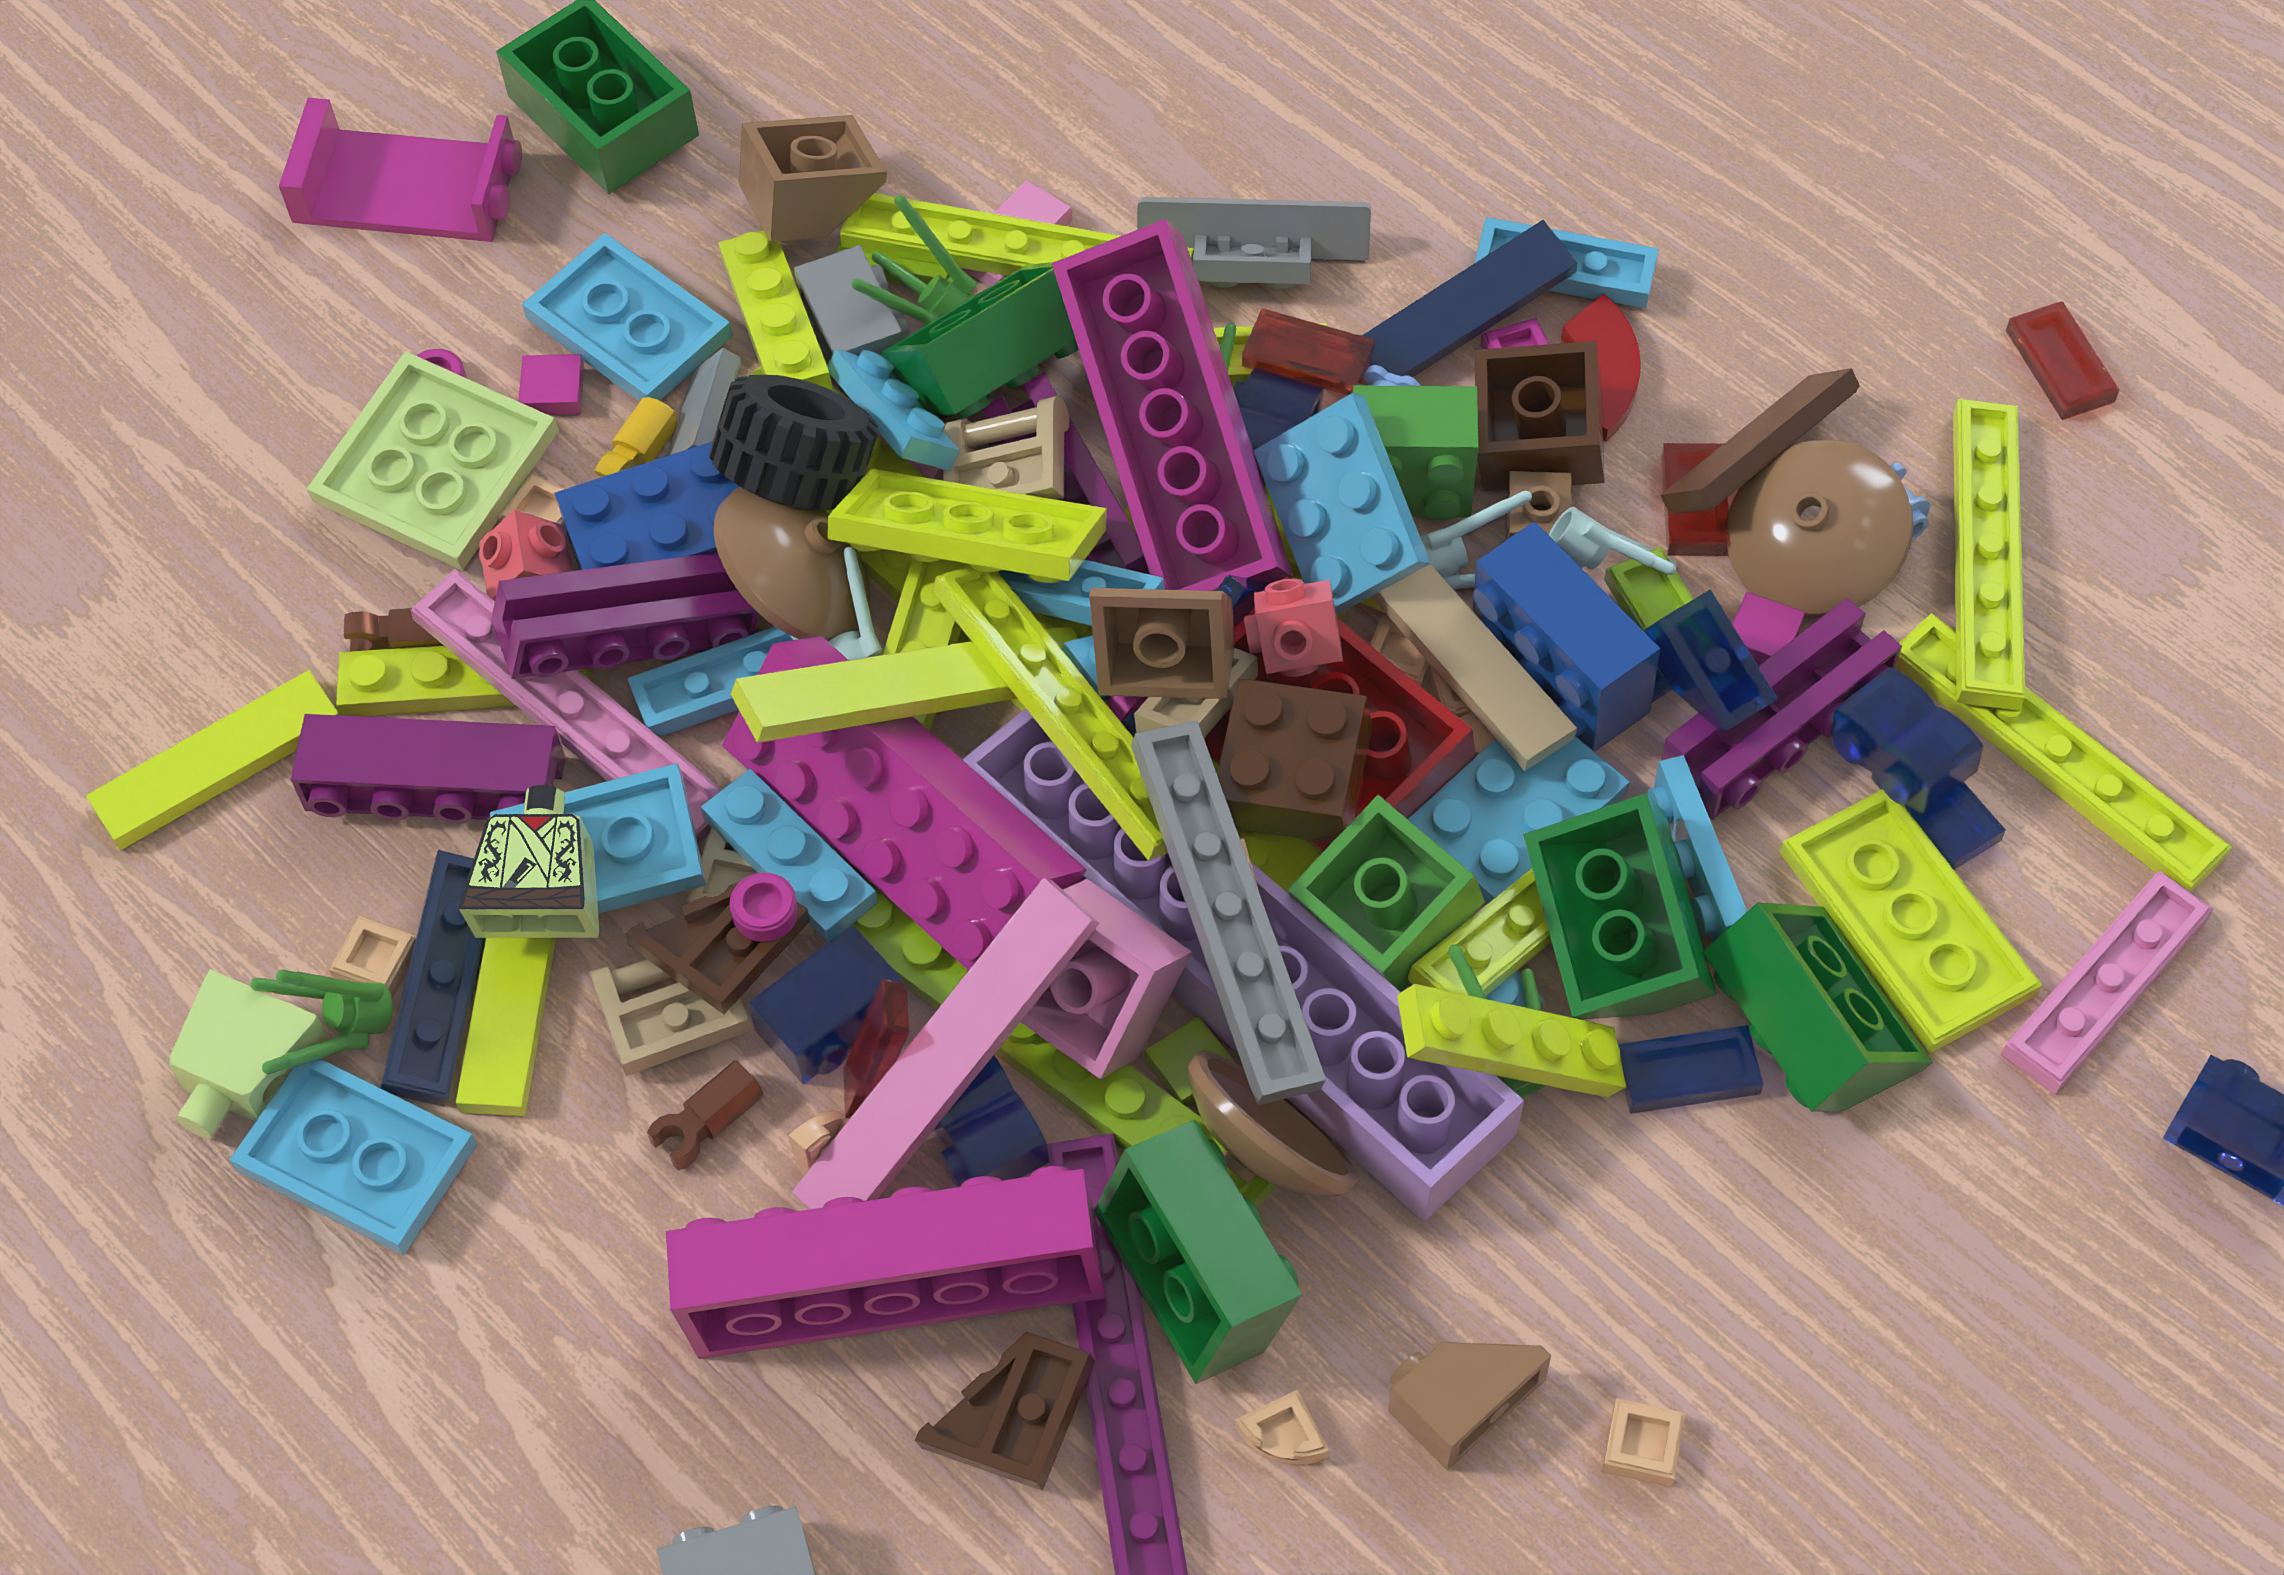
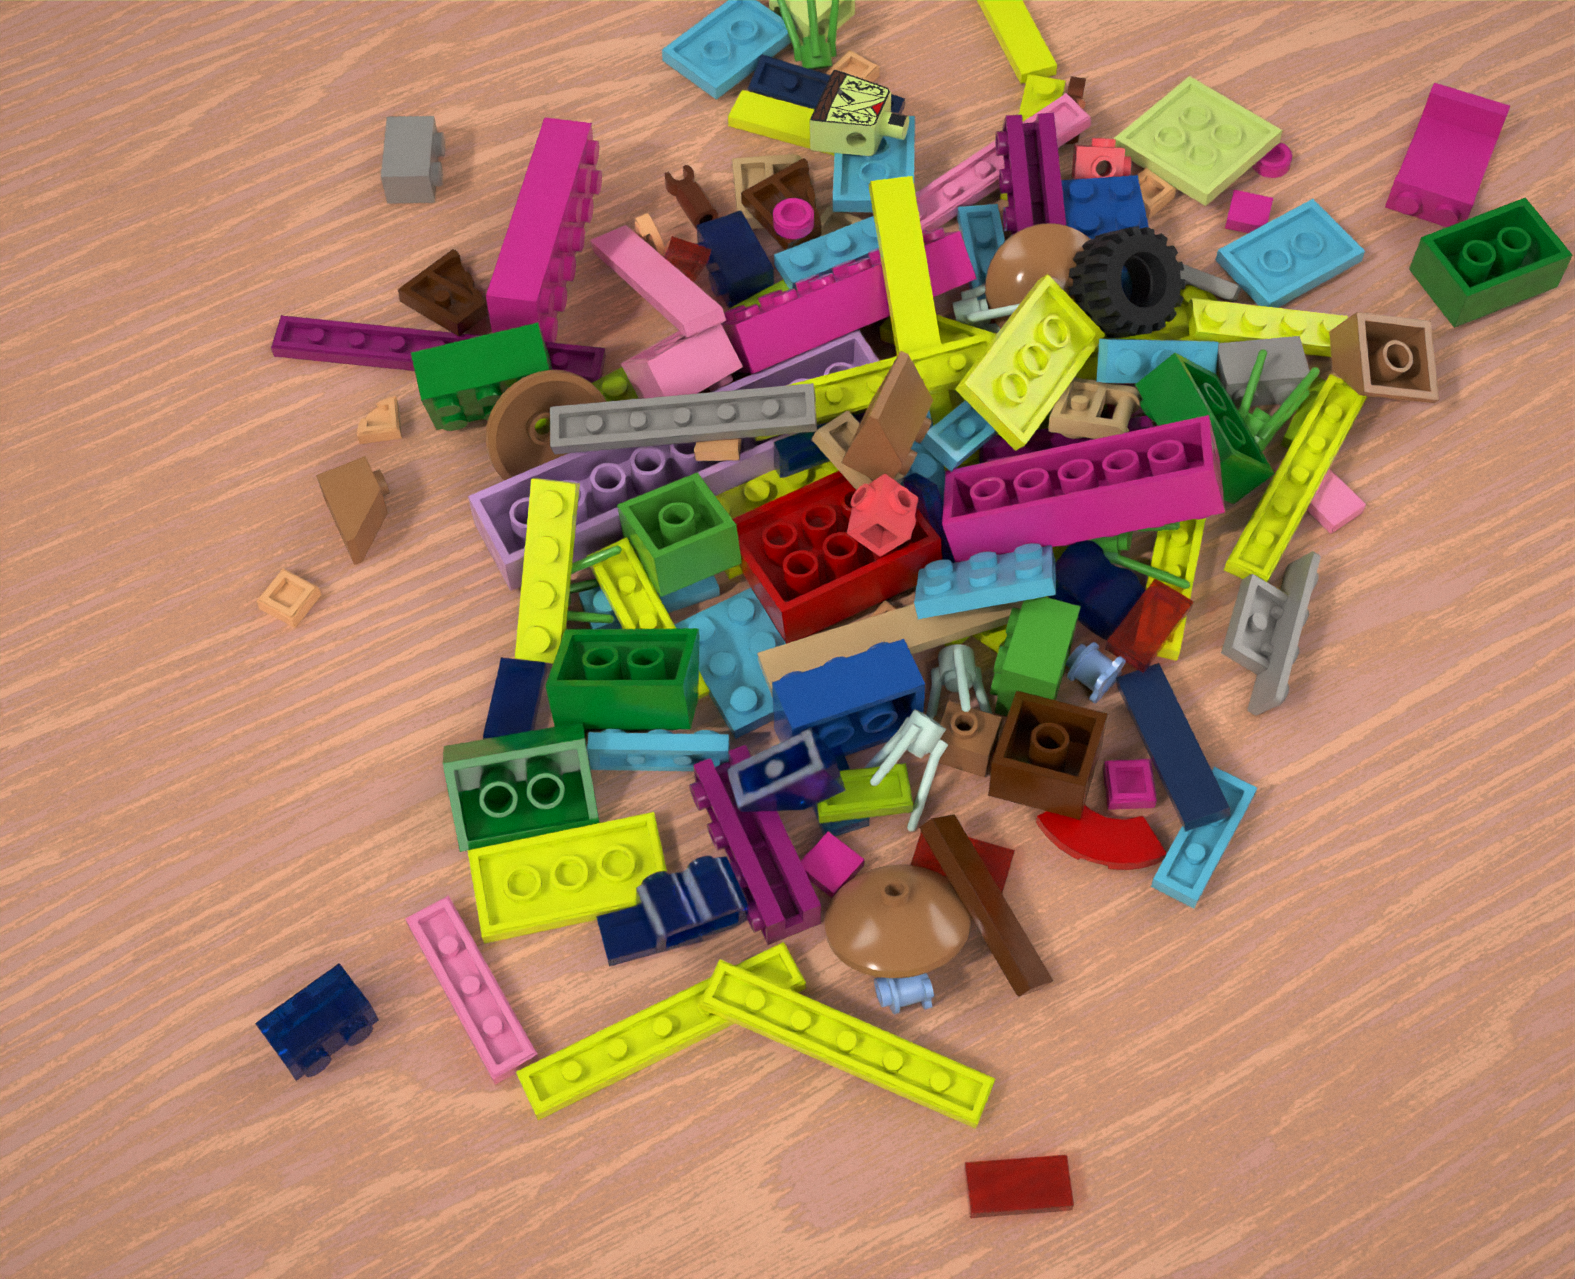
camera: 105 degrees right, 0 degrees up
(420, 766) = (964, 102): magenta brick -> none
(639, 437) = (1191, 248): yellow bar -> none
(990, 1131) = (624, 319): clear blue brick -> none
(1294, 759) = (788, 497): reddish brown brick -> none

